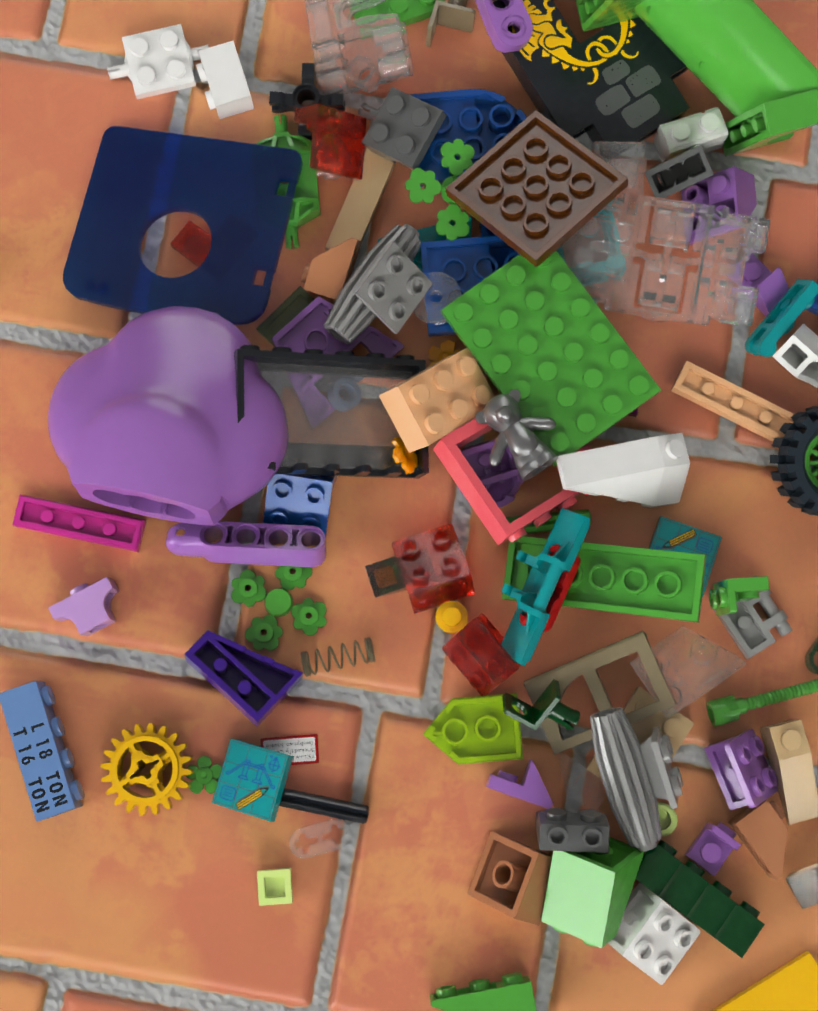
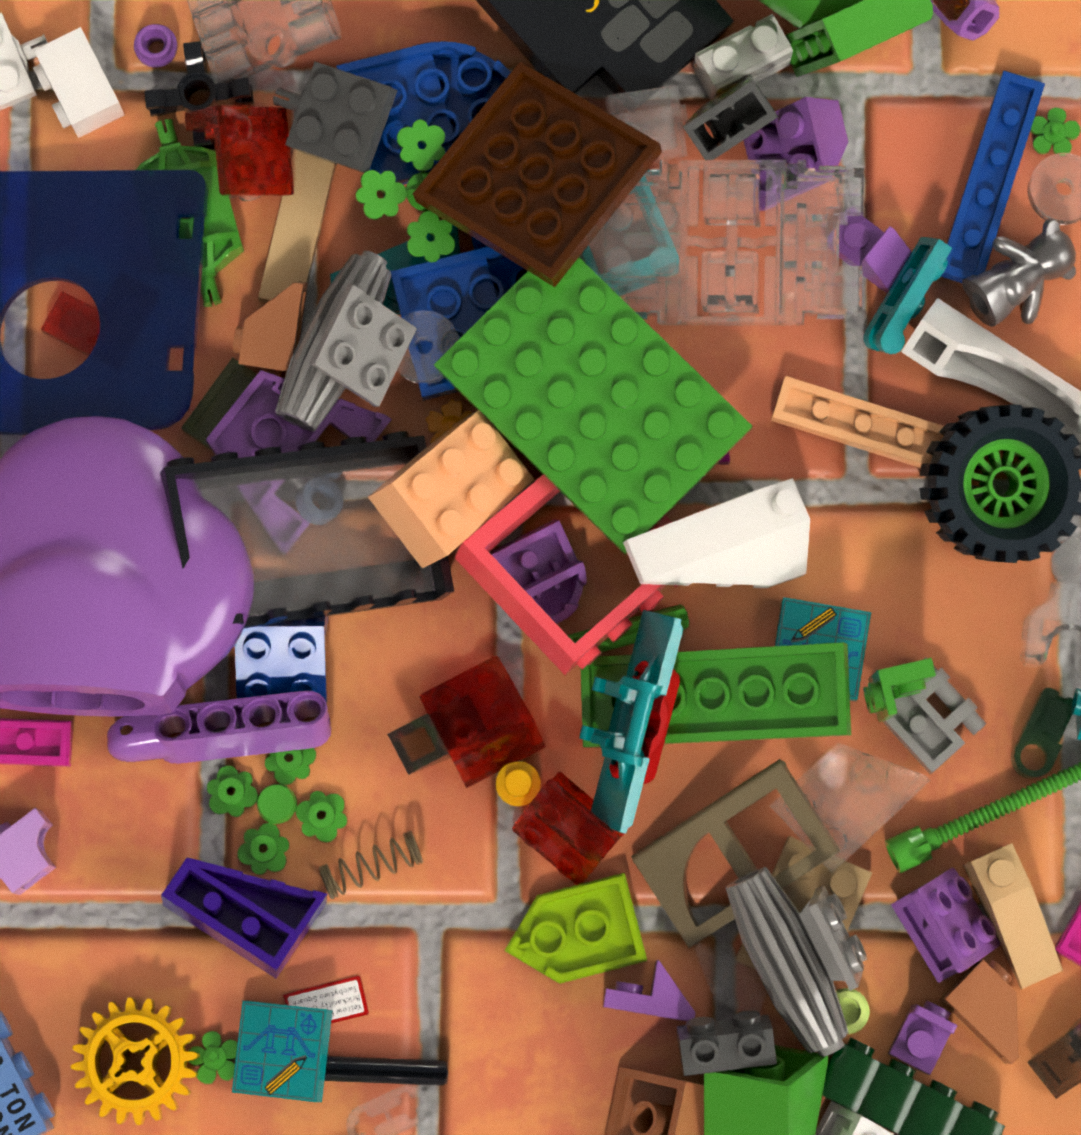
camera: 10 degrees left, 0 degrees up
(283, 56) = (151, 34): none -> medium lavender plate
(401, 454) = (411, 572): light orange plant -> none
(528, 451) = (562, 518): flat silver piece -> none
(545, 707) = (665, 885): dark green bracket -> none

